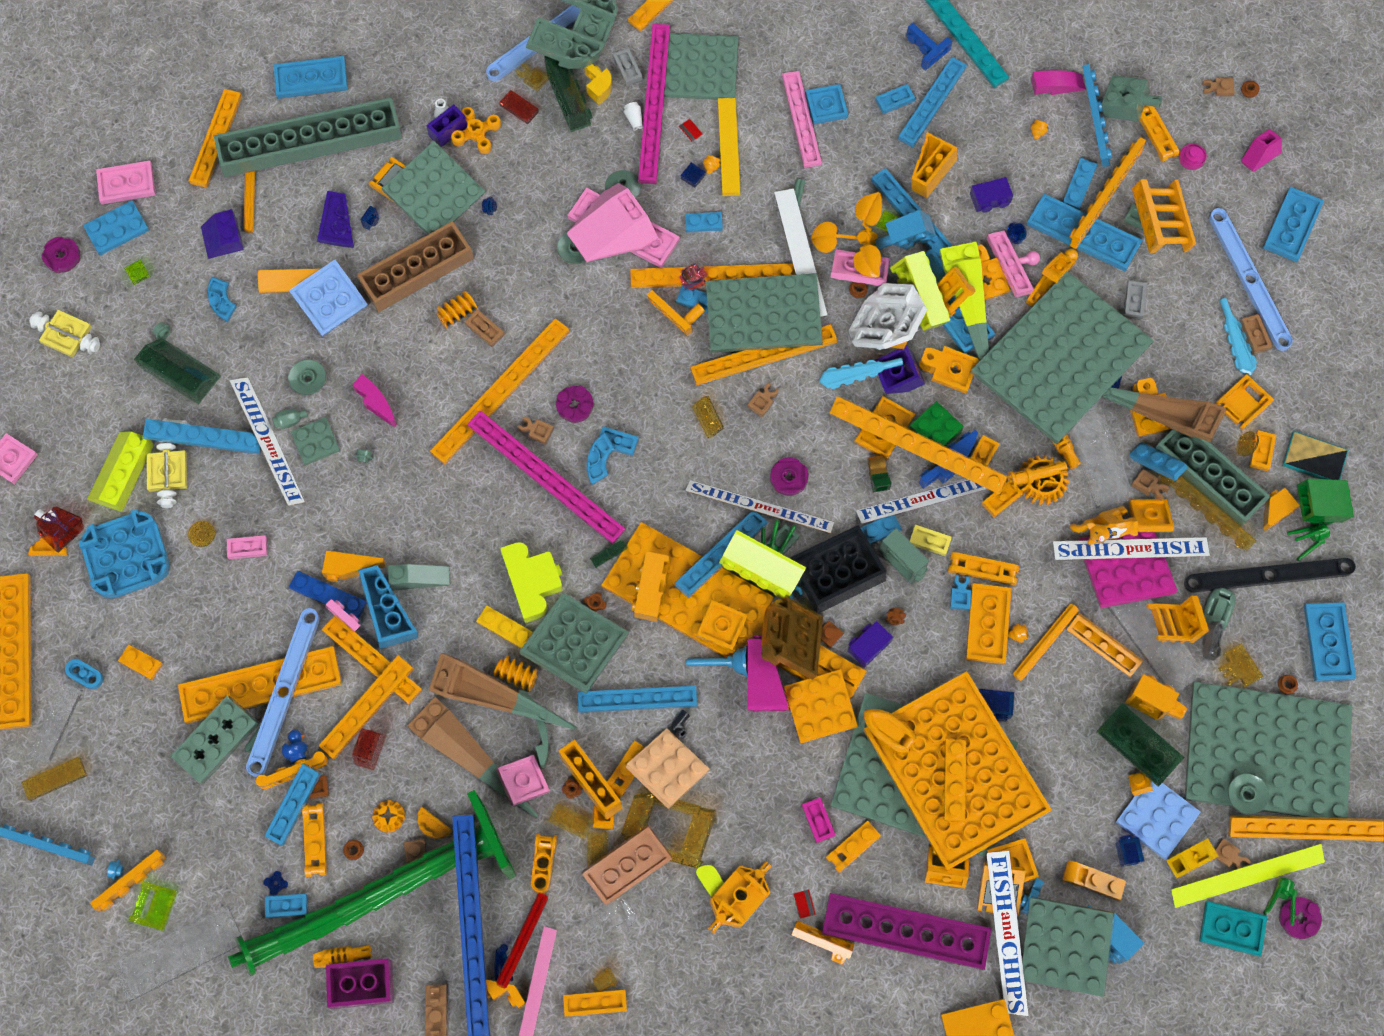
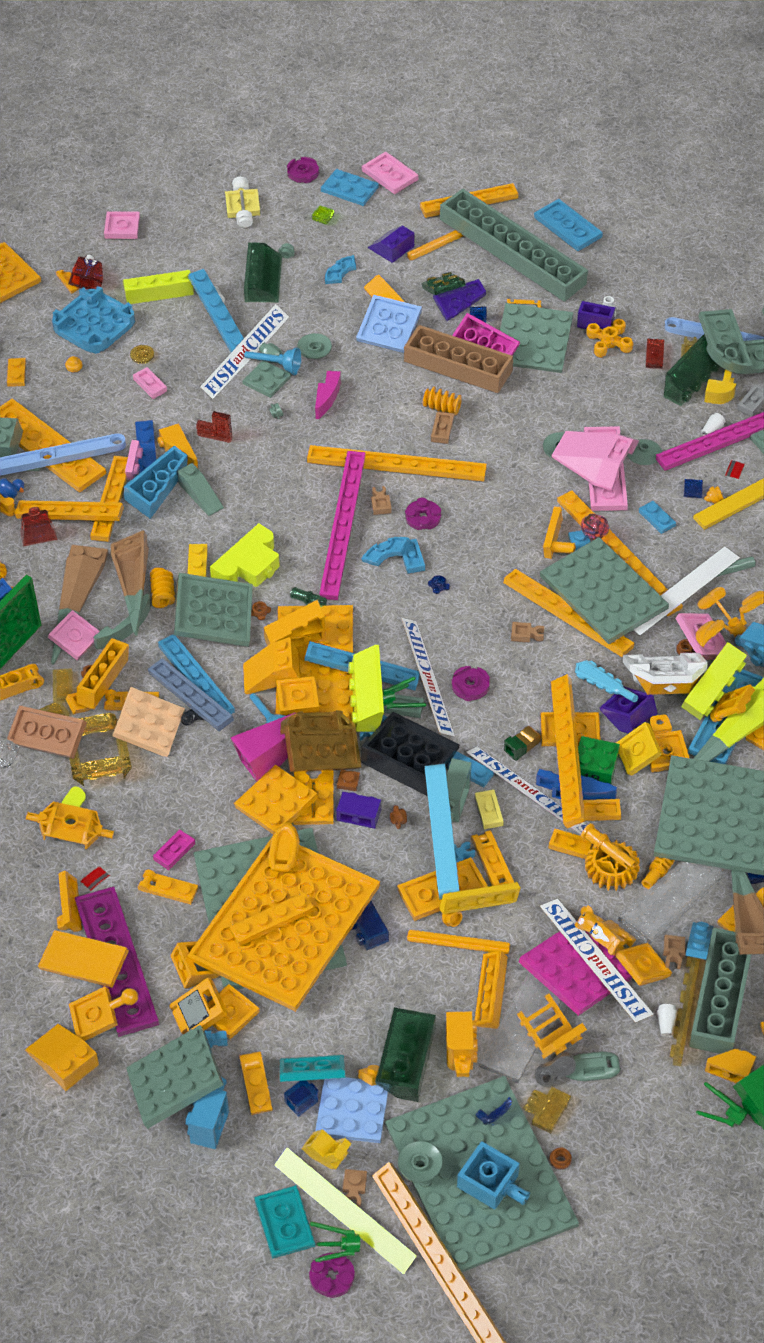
camera: 60 degrees right, 20 degrees down
(166, 473) = (175, 310): light yellow plate -> none
(170, 603) = (73, 364): none -> light orange plate
(311, 223) = (442, 284): none -> clear green plate
(312, 409) = (289, 360): none -> dark azure piece
(357, 516) = (219, 429): none -> clear red tile
(404, 231) = (481, 333): none -> dark pink wedge
(489, 206) = (551, 377): clear blue plate -> none
(660, 715) = (190, 694): none -> sand blue plate
(663, 433) = (438, 580): none -> clear blue plate
(674, 631) = (272, 663): none -> light orange slope
(708, 417) = (483, 599): clear yellow plate -> none
(893, 959) = (83, 958): none -> light orange tile
(945, 388) = (639, 748): none -> yellow plate
(951, 592) = (441, 829): none -> medium azure beam
(957, 978) = (96, 1013): none -> light orange plate
(1007, 932) = (159, 1031): white sticker -> none
(1021, 607) = (479, 898): none -> yellow plate
(1110, 828) = (312, 1068): none -> teal tile
(1208, 529) = (667, 1018): none -> white cone
(1233, 709) = (494, 1115): none -> clear blue piece
(1282, 574) = (671, 1104): black beam -> none
(1303, 745) = (491, 1177): none -> dark azure brick
(1329, 642) = (630, 1174): dark azure plate -> none

